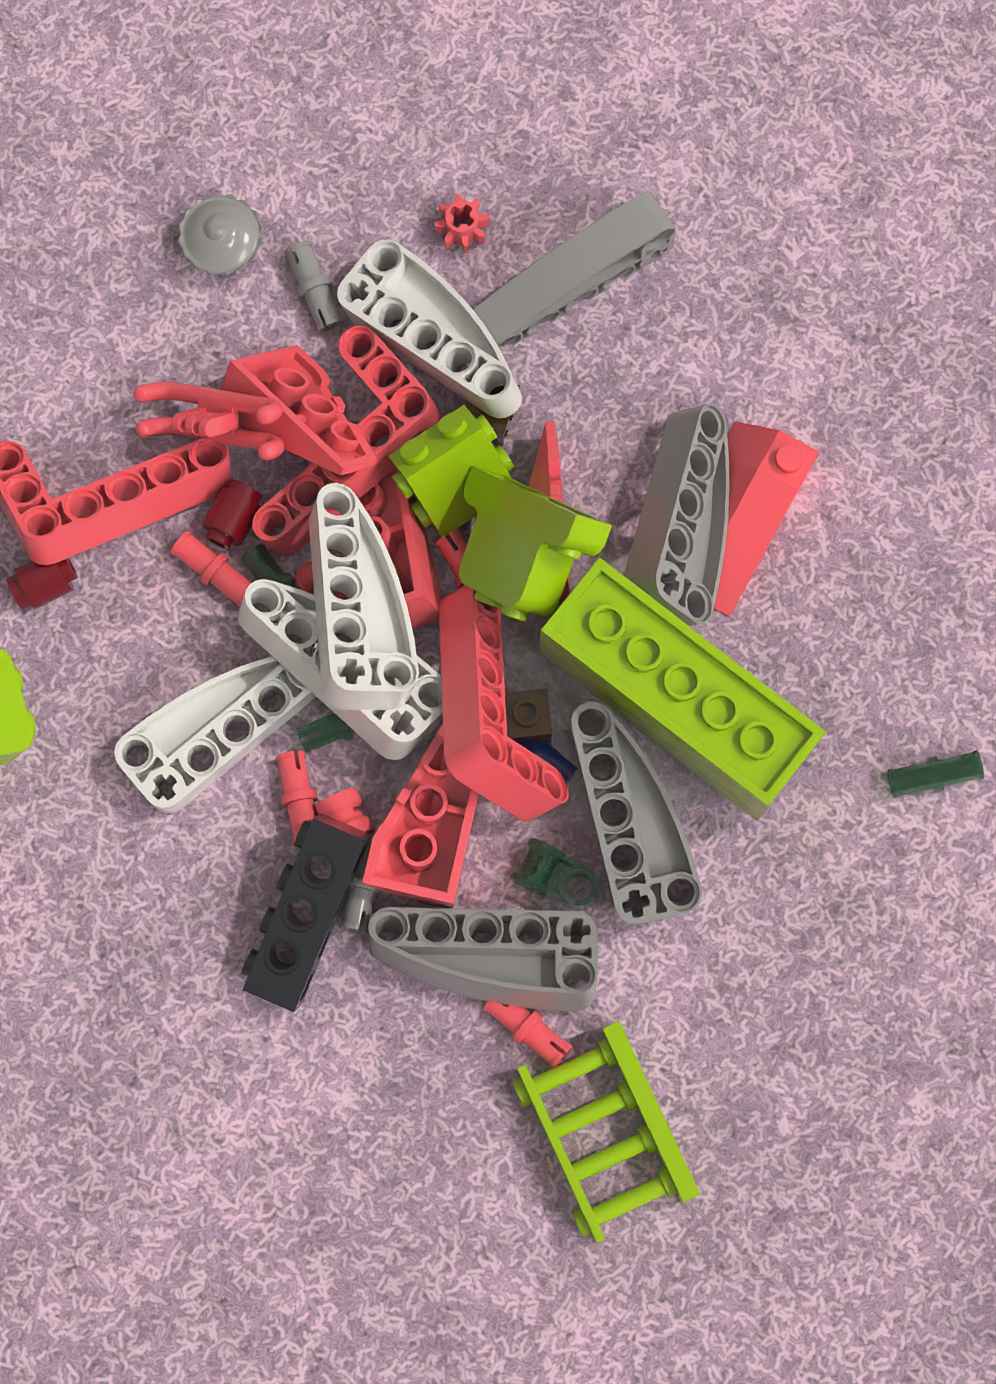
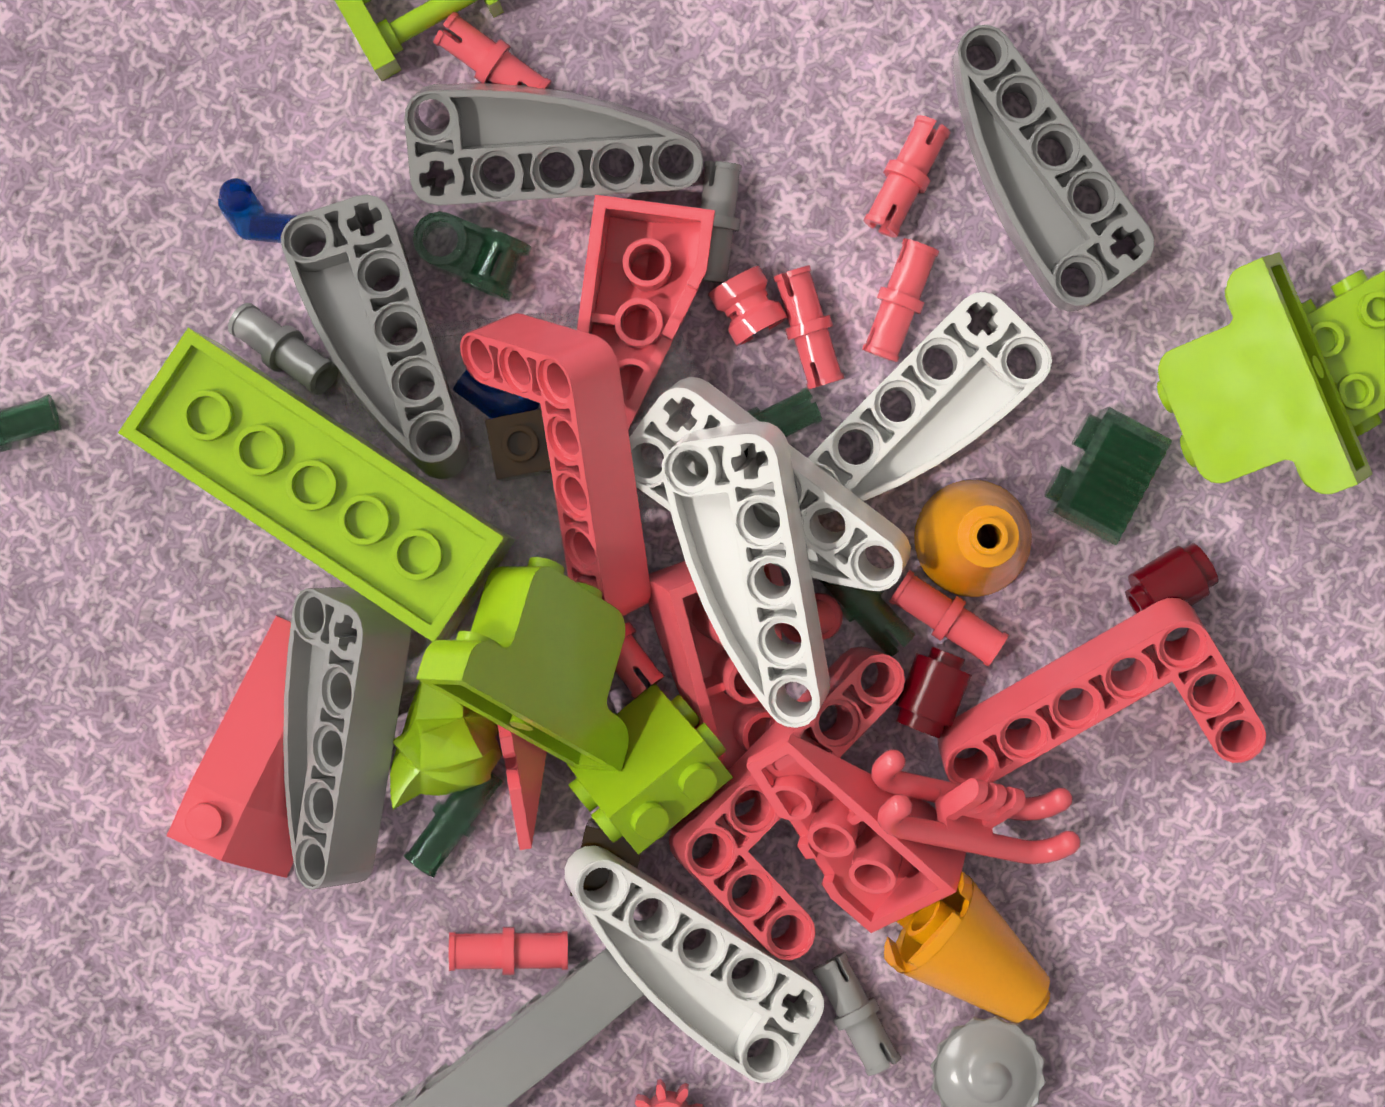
camera: 175 degrees right, 10 degrees up
(82, 665) = (1107, 475): none -> clear green brick
(109, 880) = (1036, 197): none -> light grey beam
(189, 629) = (949, 544): none -> light orange cone
(210, 909) = (907, 176): none -> coral pin
(225, 319) = (971, 955): none -> light orange cone
(225, 813) = (900, 299): none -> coral pin
(289, 983) = (803, 89): black brick -> none
(570, 353) = (508, 950): none -> coral pin
(604, 452) = (449, 825): none -> clear green pin
(613, 497) = (441, 748): none -> lime hair
(708, 814) = (282, 348): none -> light grey pin
(728, 921) = (247, 214): none -> clear blue arm

